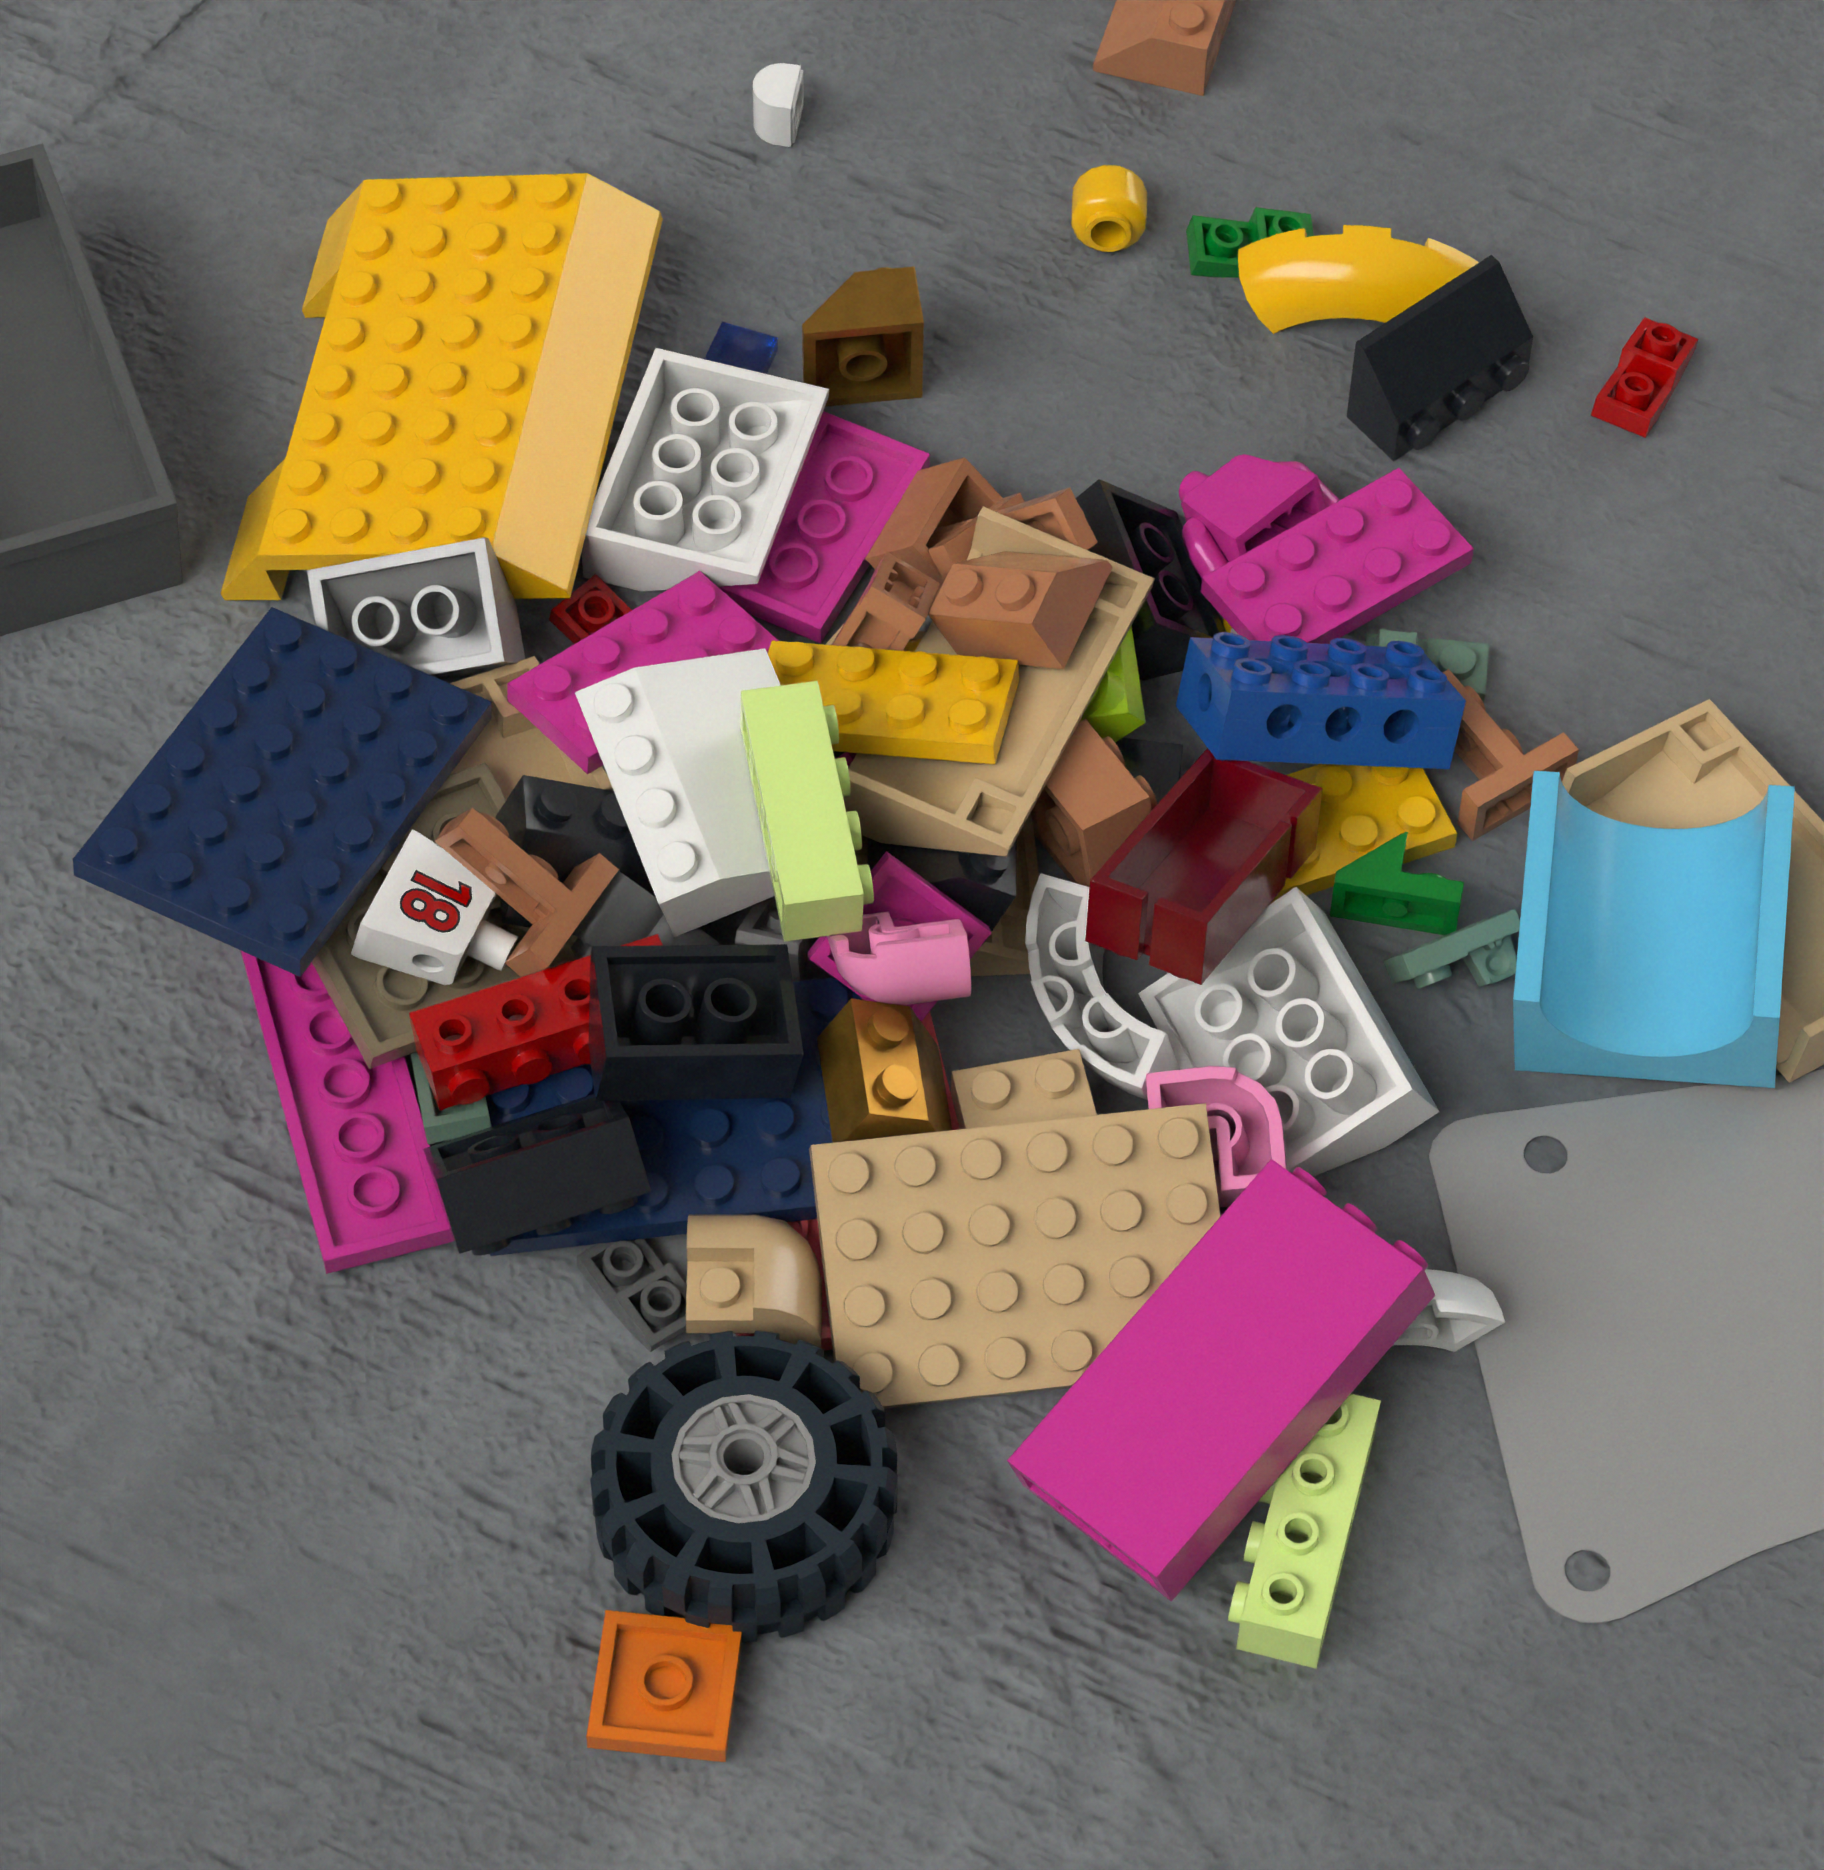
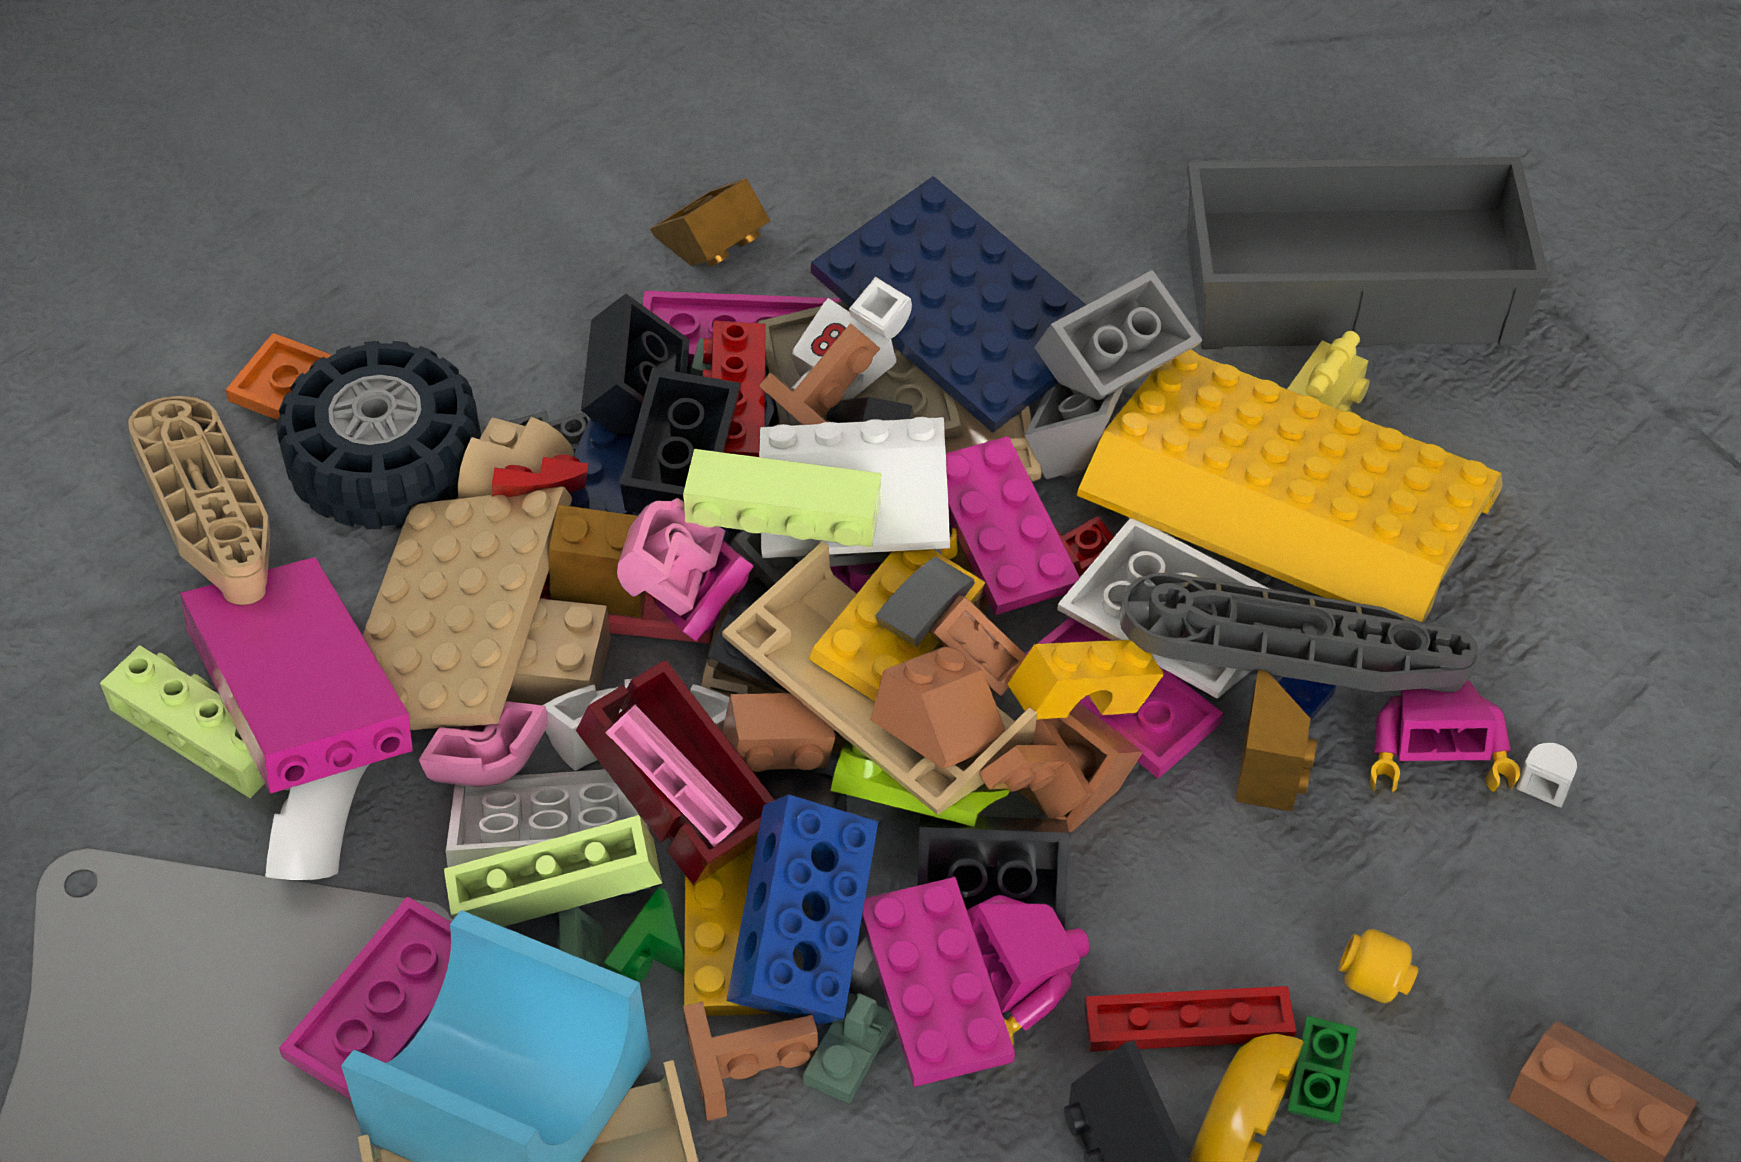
camera: 110 degrees right, 5 degrees down
(145, 1227) = (713, 224): none -> pearl gold slope
(235, 409) = (1334, 373): none -> light yellow brick
(332, 564) = (1117, 338): none -> light grey slope
(380, 836) = (882, 308): none -> white brick
(744, 407) = (1293, 635): none -> dark grey beam
(759, 207) = (1442, 728): none -> dark pink torso
(798, 1187) = (555, 472): none -> red slope
(859, 486) = (1061, 674): none -> yellow arch
(873, 640) = (923, 600): none -> dark grey slope
(936, 1669) = (226, 545): none -> tan beam
(1241, 830) = (674, 775): none -> bright pink piece
(1247, 365) = (1188, 1017): none -> red plate
(1398, 957) = (556, 874): none -> yellowish green brick
(1596, 1133) = (377, 998): none -> dark pink plate

